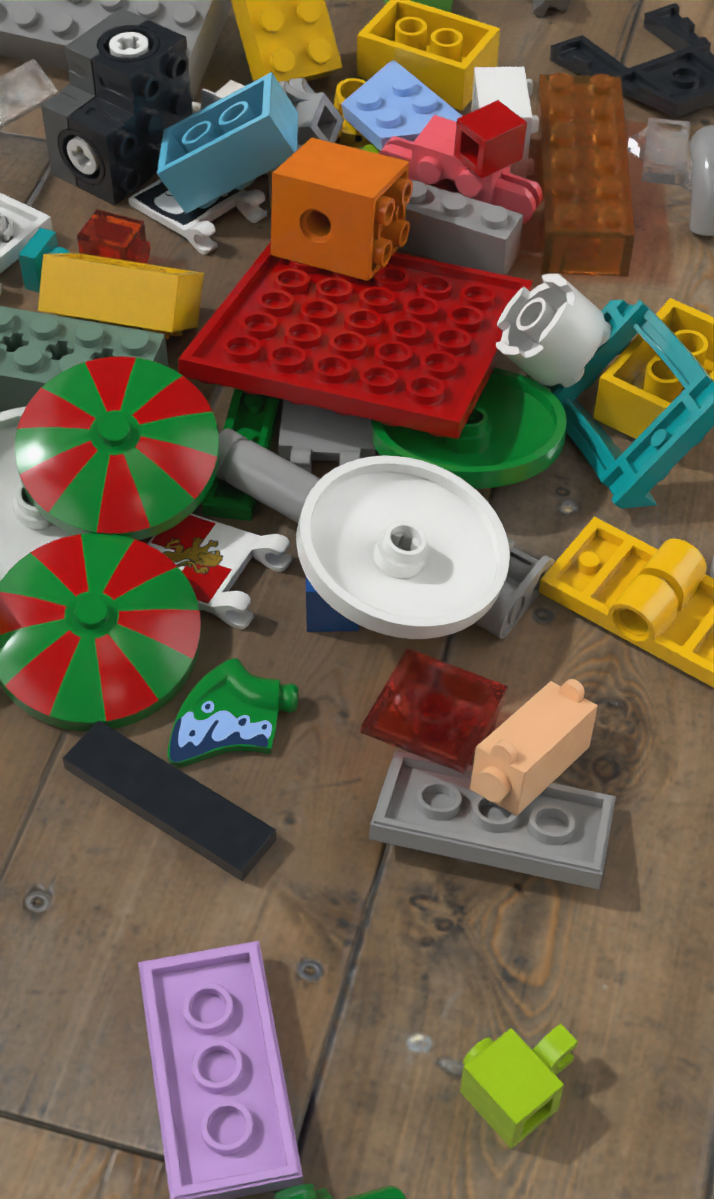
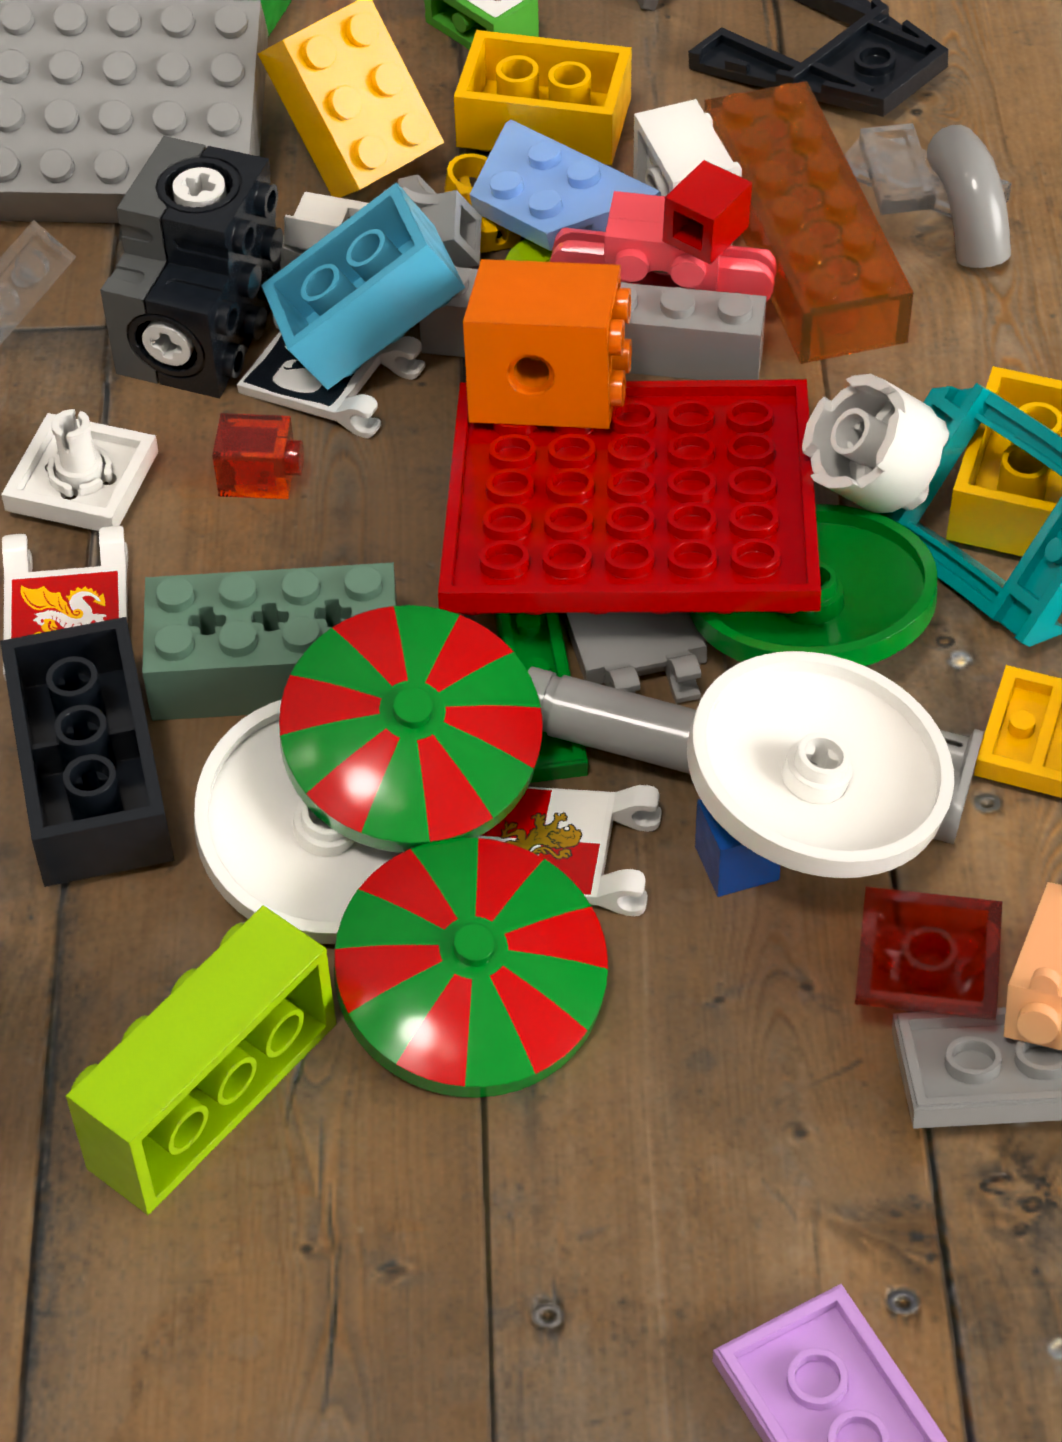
camera: 15 degrees left, 0 degrees up
(31, 257) = (177, 499): teal tile -> none
(120, 292) = (308, 520): yellow brick -> none
(170, 800) = (651, 1147): black tile -> none
(229, 714) = (676, 1024): green arm -> none

